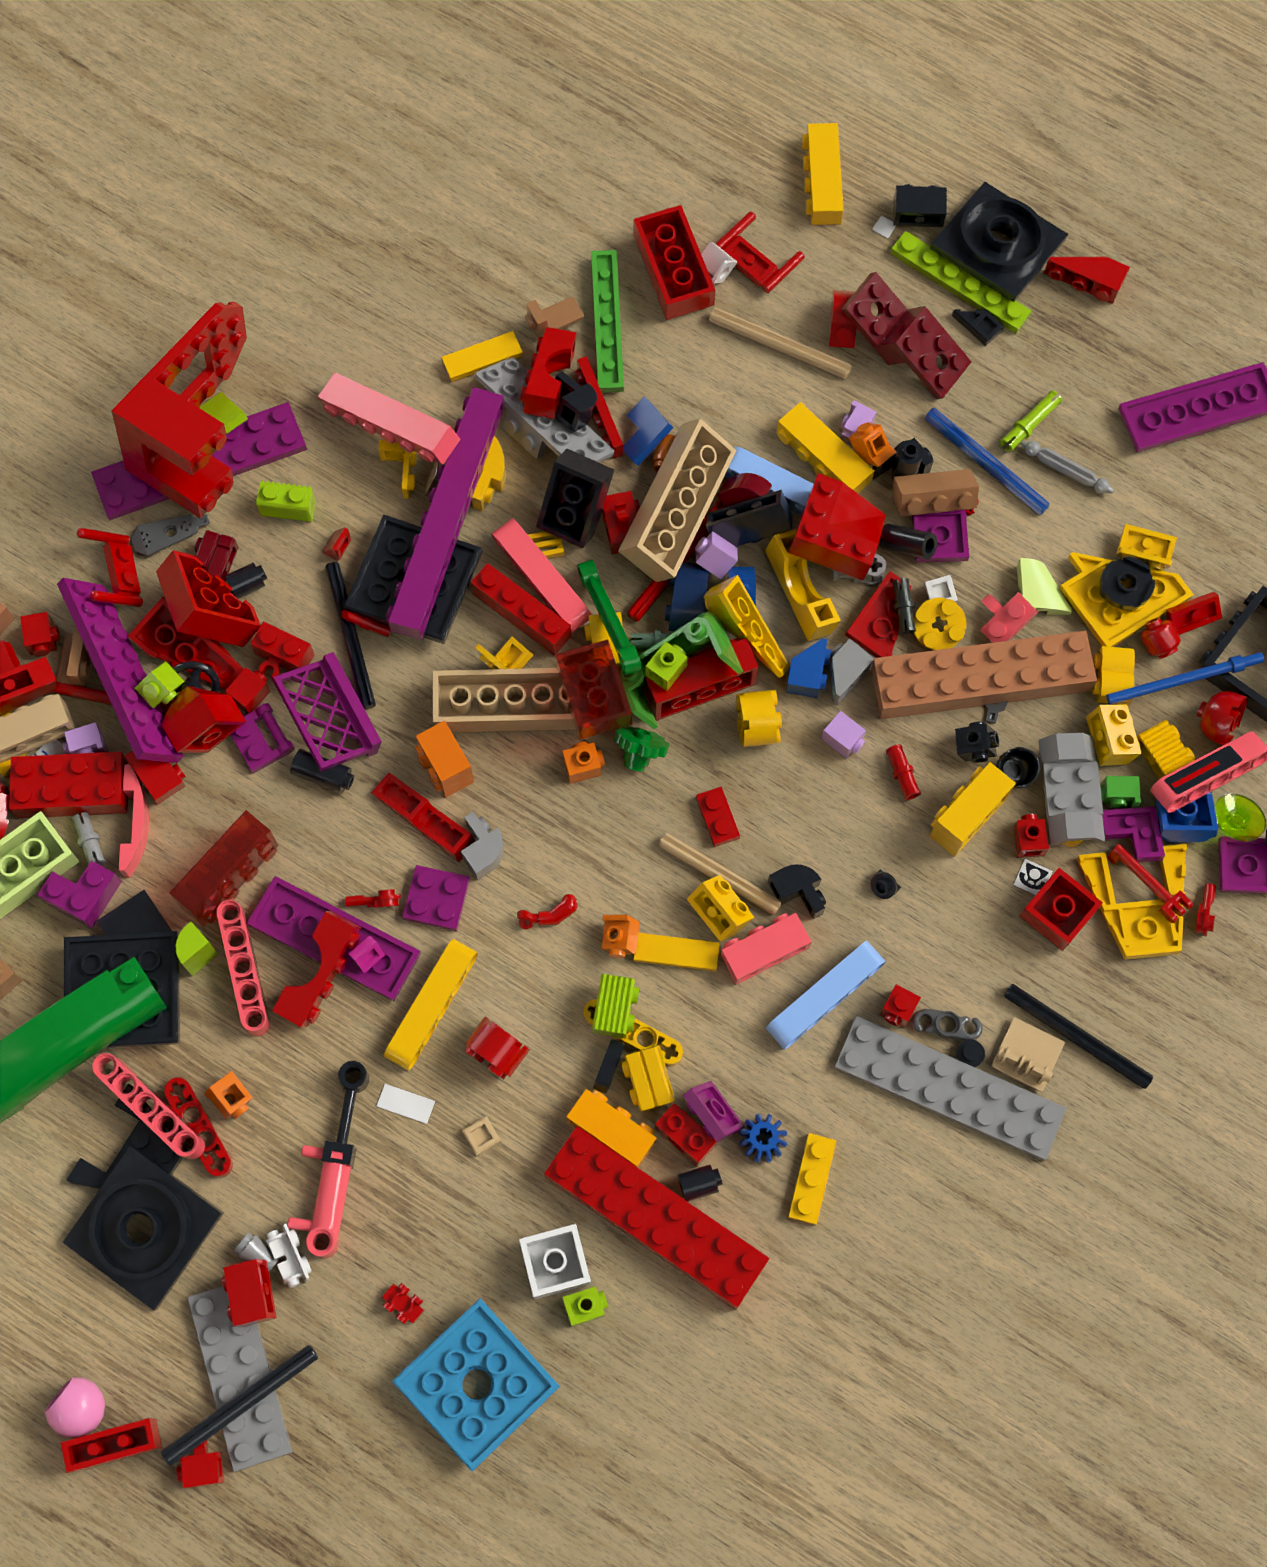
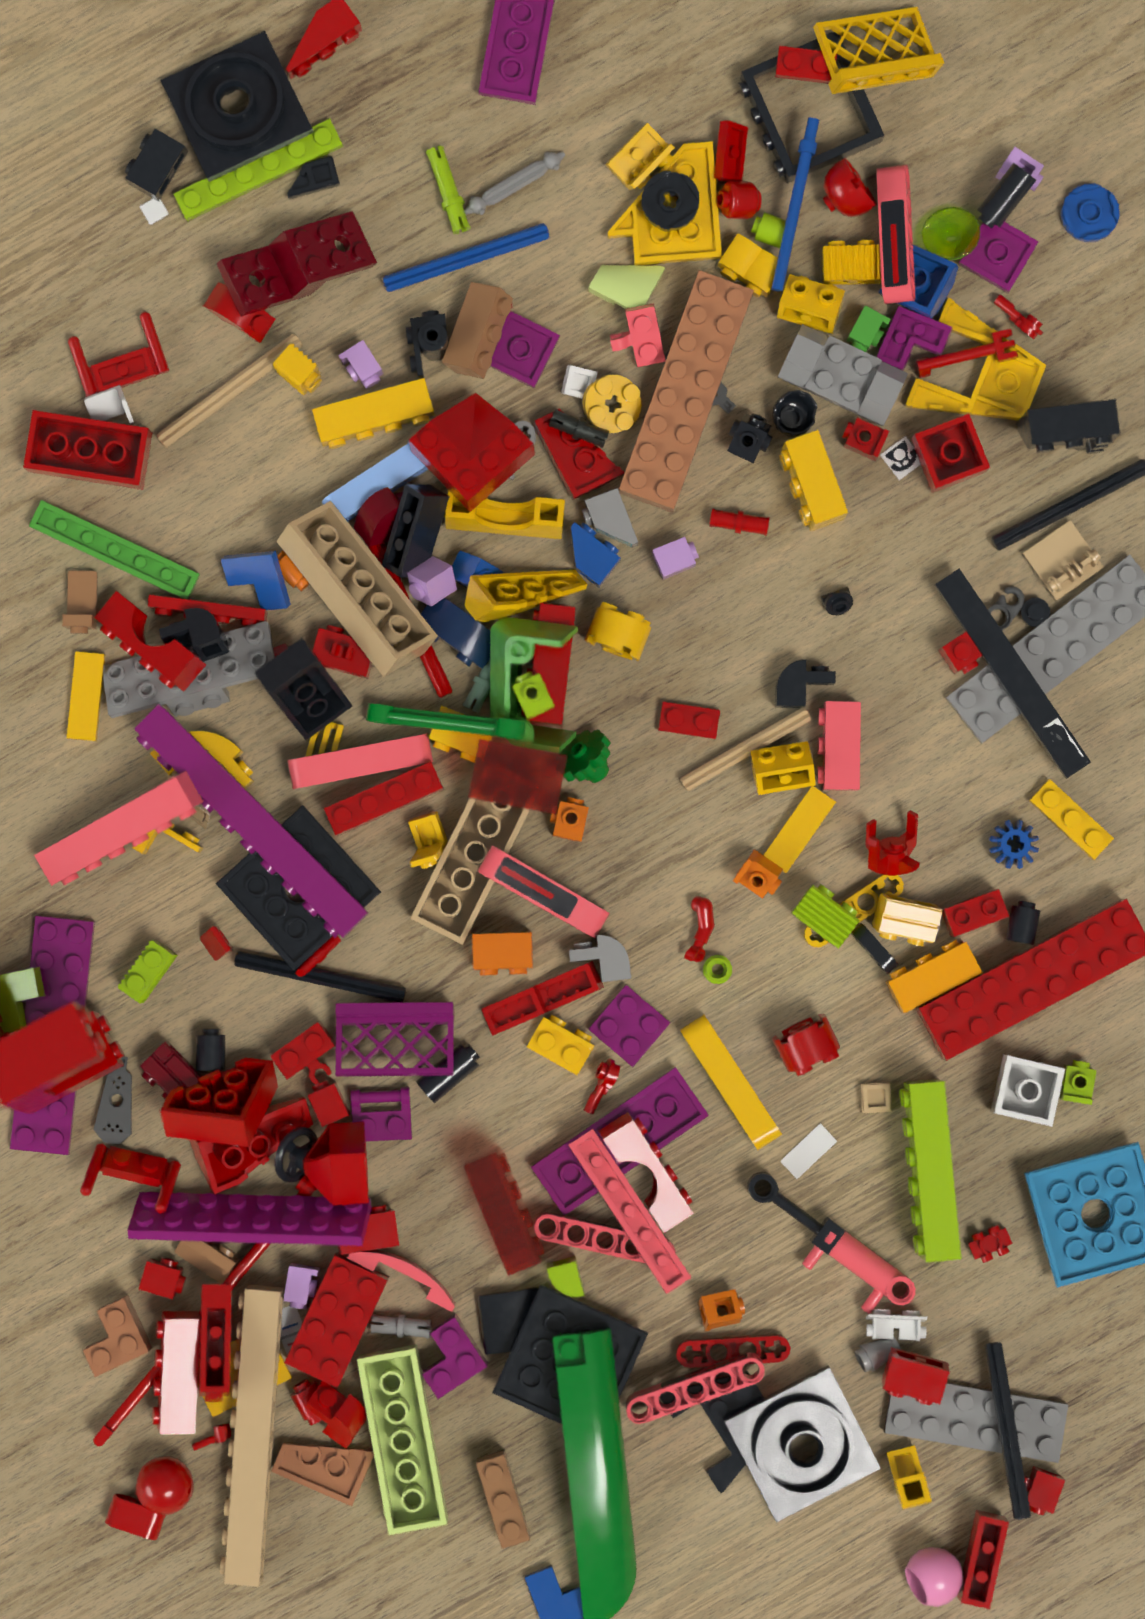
camera: 60 degrees left, 15 degrees up
(152, 1340) = (908, 1478): none -> yellow brick
(160, 685) = (289, 1187): lime brick -> none
(274, 972) = (629, 1211): none -> coral plate
(366, 954) = (656, 1119): dark pink plate -> none
(391, 850) = (561, 1045): none -> yellow bracket
(440, 1212) = (931, 1170): none -> lime brick
(510, 765) = (543, 892): none -> beam
(522, 937) = (724, 976): none -> lime plate
(697, 1037) = (892, 853): none -> red piece
(713, 1111) = (969, 877): magenta plate -> none
(824, 174) = (65, 240): yellow brick -> none
(825, 376) = (298, 370): none -> yellow brick
(825, 995) = (913, 714): light blue beam -> none
(871, 444) = (389, 370): orange window -> none
(907, 1059) = (1012, 673): none -> black tile
(908, 541) = (515, 386): black brick -> none
(1145, 989) = (1076, 426): none -> black slope
(1150, 671) = (769, 229): none -> lime brick

